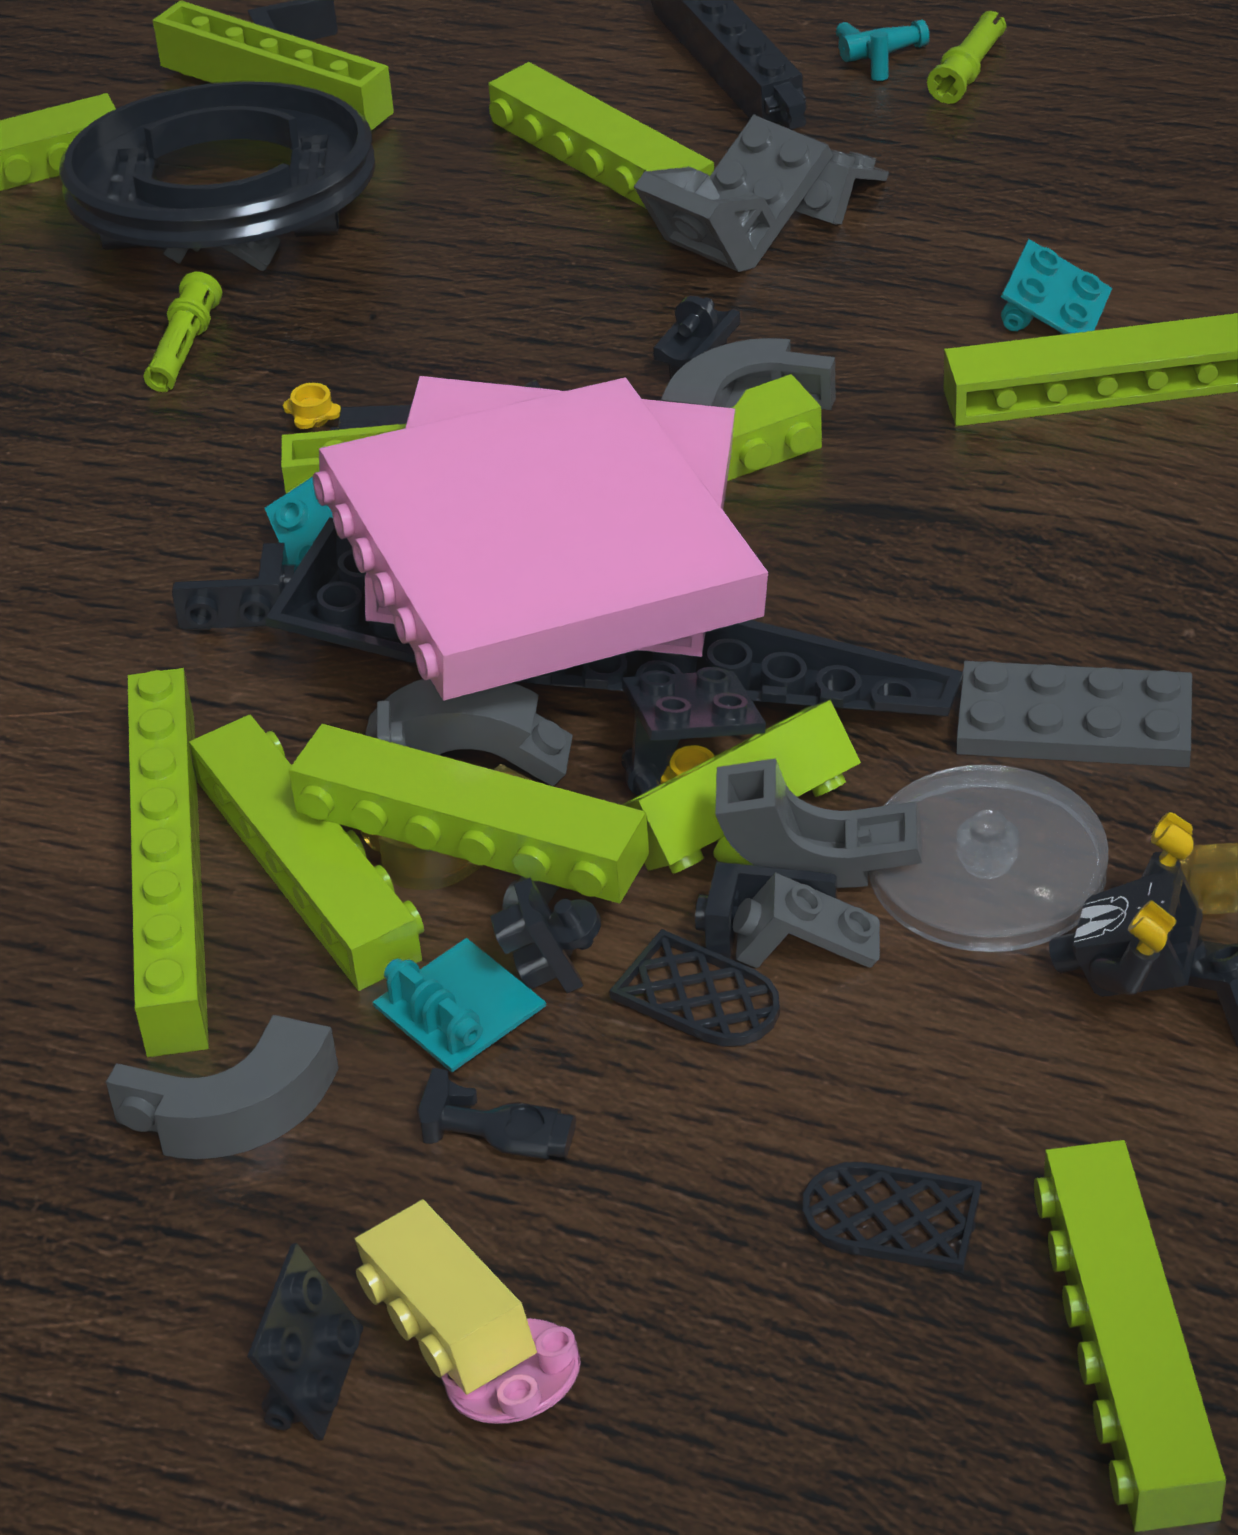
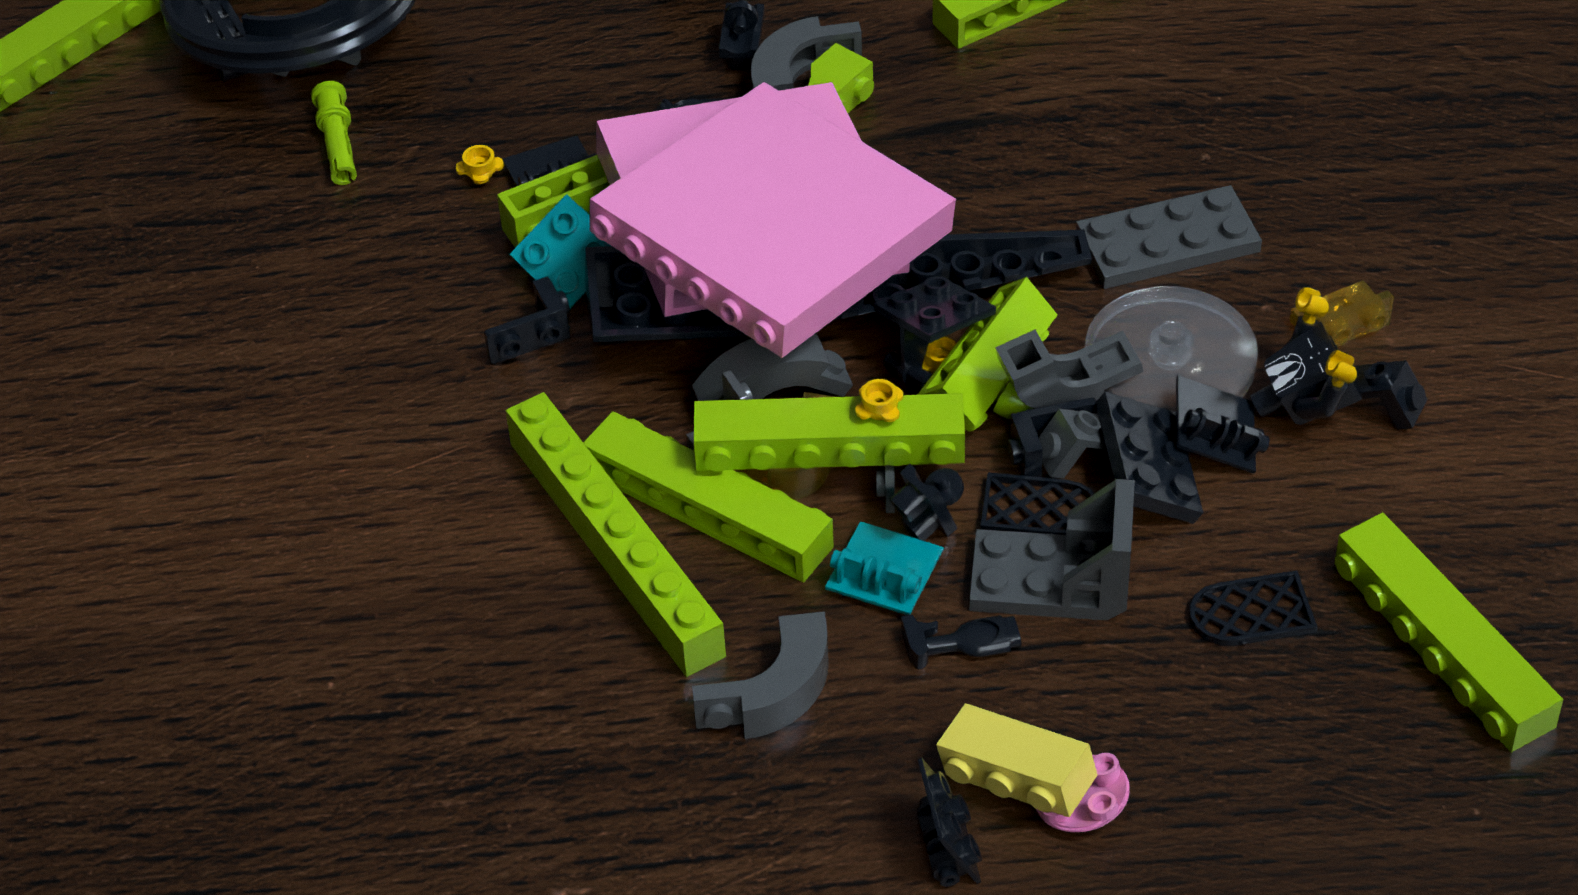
camera: 25 degrees left, 5 degrees up
(529, 786) = (879, 401): none -> yellow plate
(669, 1081) = (1060, 574): none -> dark grey bracket
(864, 973) = (1145, 449): none -> black plate
(980, 959) = (1217, 425): none -> black hinge

